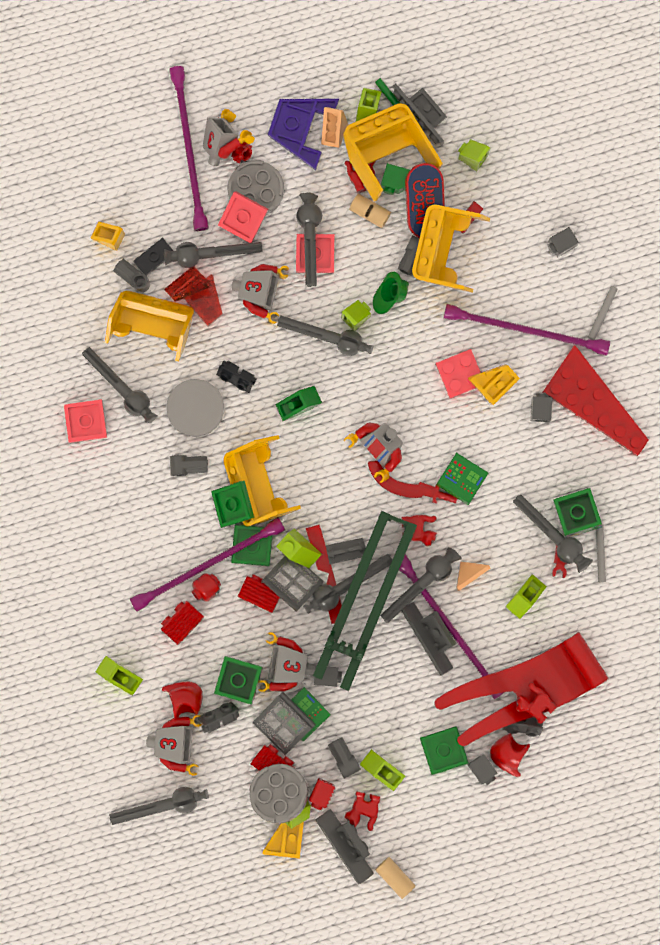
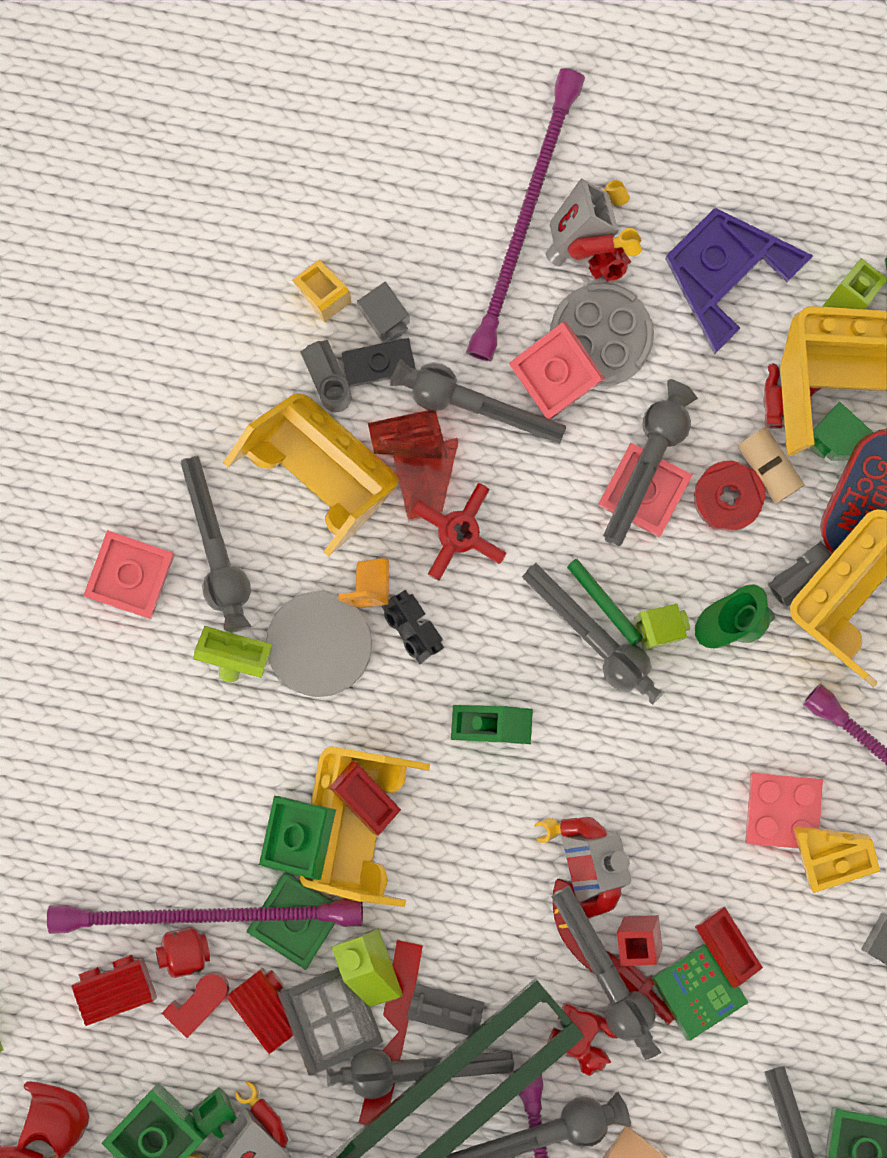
camera: 30 degrees right, 0 degrees up
(144, 231) = (384, 312): none -> dark grey brick
(156, 432) = (232, 653): none -> lime tile
(182, 465) = (251, 730): dark grey piece -> none
(205, 366) = (371, 584): none -> light orange bracket
(227, 608) = (208, 995): none -> red leg
(231, 323) = (448, 536): none -> red bar
(255, 469) = (365, 798): none -> red tile
(259, 288) = (522, 502): light grey torso -> none
(259, 655) = (213, 1112): none -> green tile
(323, 317) = (604, 602): none -> green bar
(333, 127) = (780, 298): light nougat slope -> none
(357, 225) = (738, 478): none -> red plate
(421, 469) = (639, 940): none -> red brick
(433, 505) = (628, 1013): none -> dark grey piece
(466, 451) = (728, 947): none -> red tile

